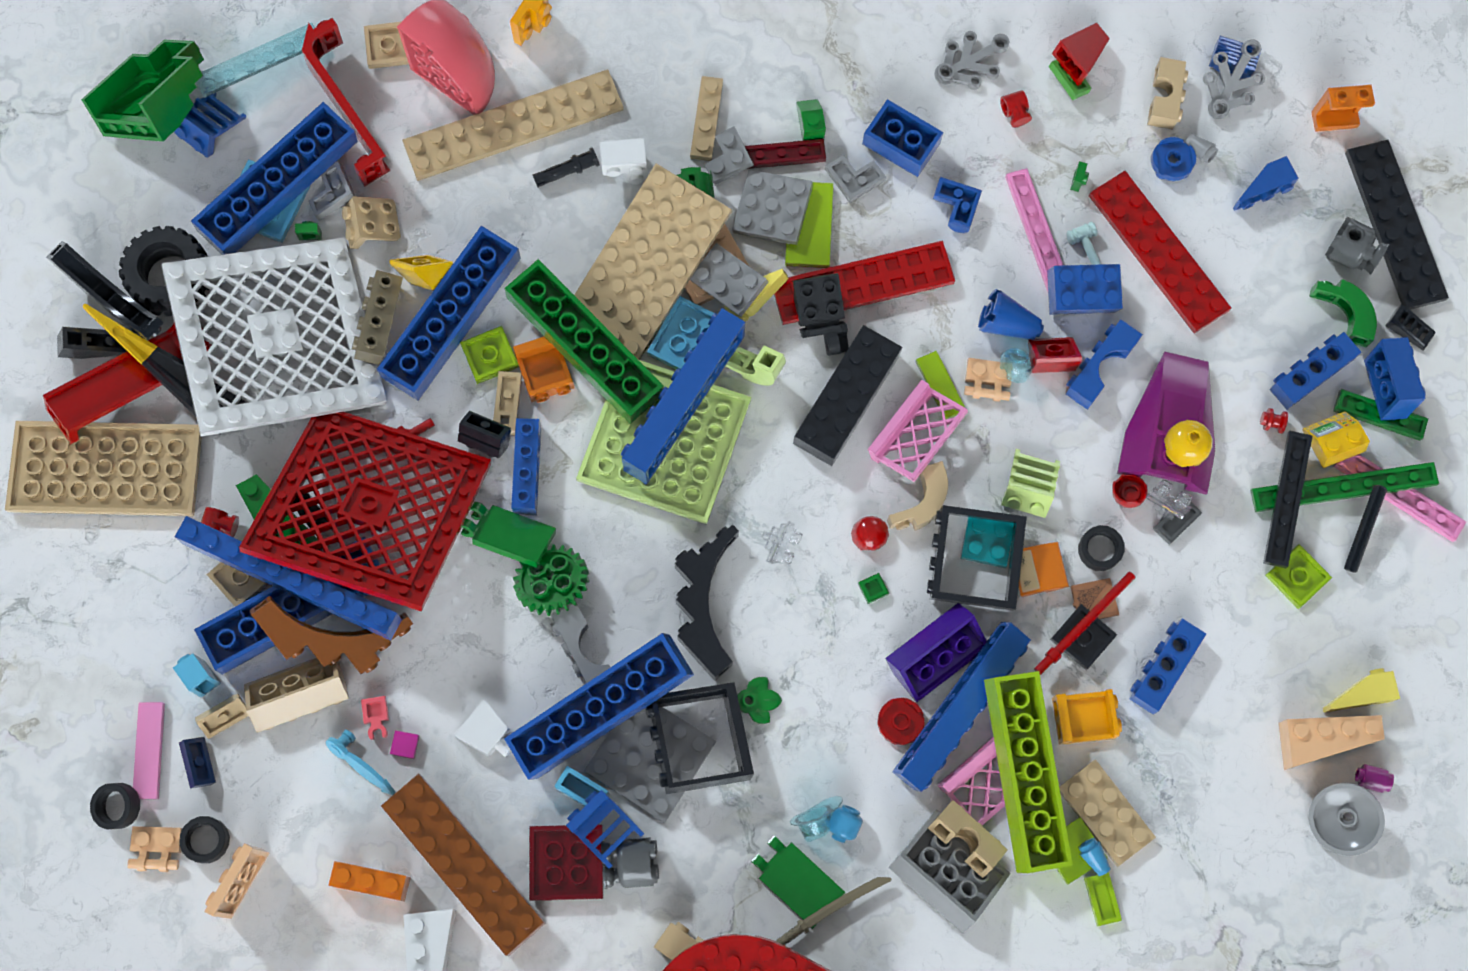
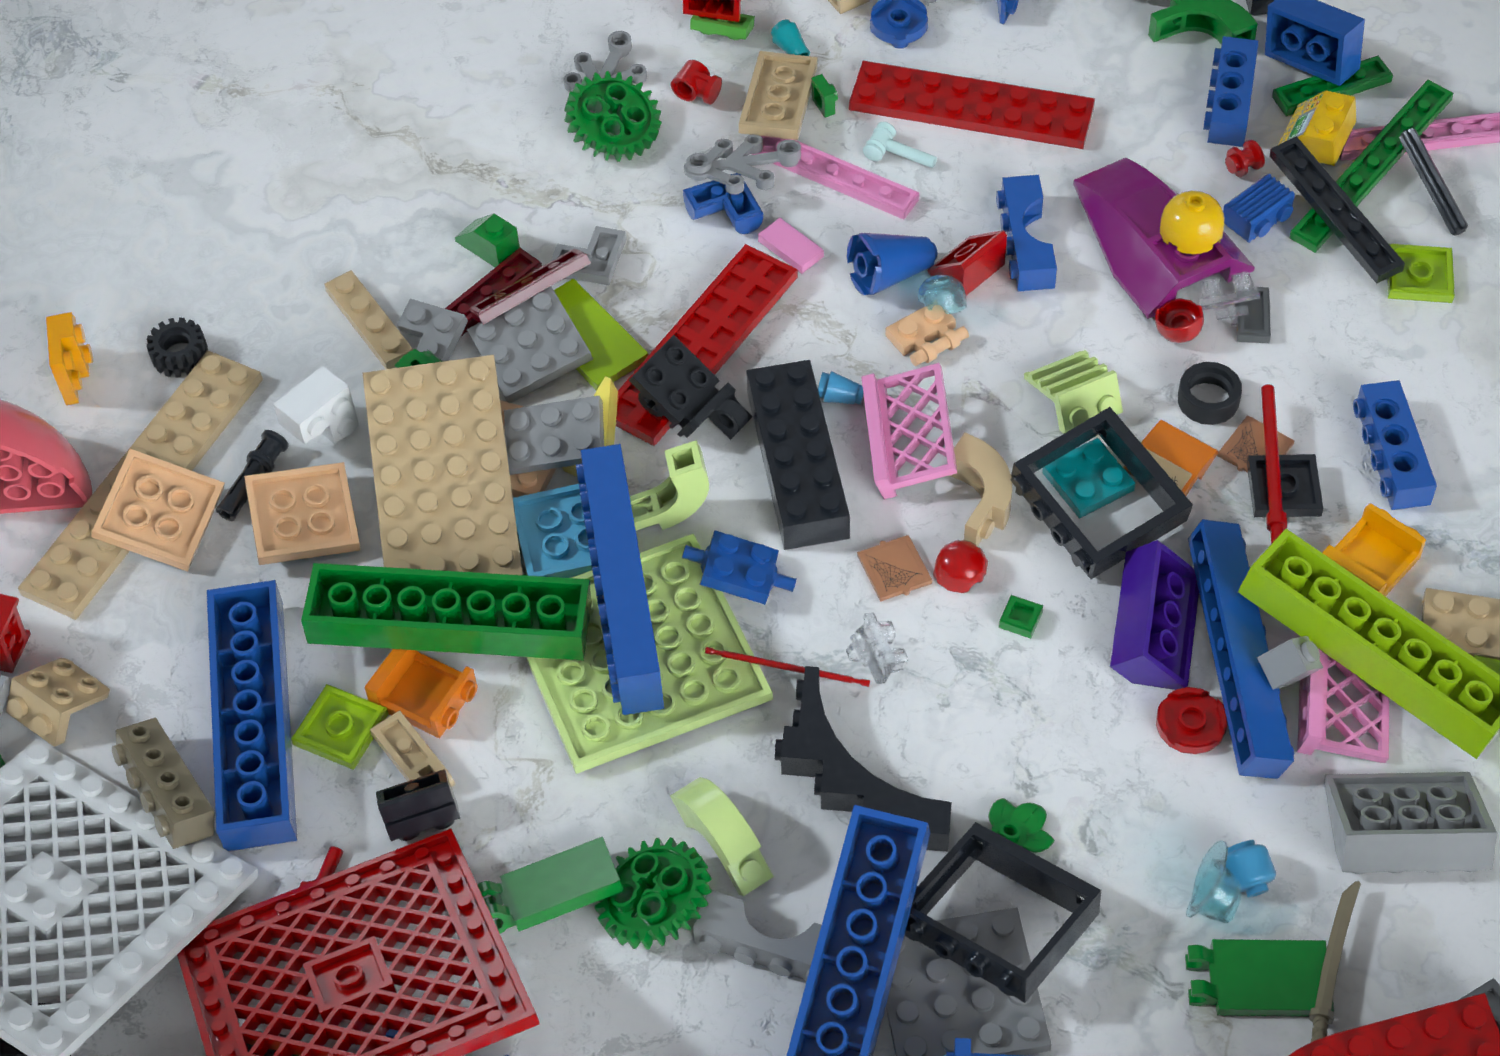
camera: 35 degrees left, 20 degrees down
(422, 270) = (175, 695): yellow slope -> none
(501, 152) = (158, 510): none -> light nougat plate
(526, 466) = (502, 800): blue brick -> none
(570, 214) = (301, 513): none -> light nougat plate
(594, 43) = (173, 334): none -> black tyre
(611, 577) = (725, 829): none -> yellowish green arch
(727, 514) = (785, 666): none -> red piece
(755, 437) = (739, 567): none -> blue plate
(801, 171) = (529, 286): none -> tile
(837, 503) = (894, 568): none -> nougat piece
(902, 138) = (607, 184): blue brick -> none
(907, 374) = (839, 389): none -> dark azure cone
(939, 380) = (856, 363): lime tile -> none
(966, 95) = (612, 116): none -> green gear
(969, 260) = (790, 245): none -> bright pink tile
(971, 741) = (1290, 662): none -> light grey brick
(984, 848) = (1419, 763): tan arch -> none
(986, 184) = (704, 166): none -> light grey plant
(1053, 155) = (778, 95): none -> tan plate
(1084, 289) = (937, 179): blue brick -> none
(1097, 121) = (788, 38): none -> teal cone
(1248, 459) = (1259, 208): none -> blue brick

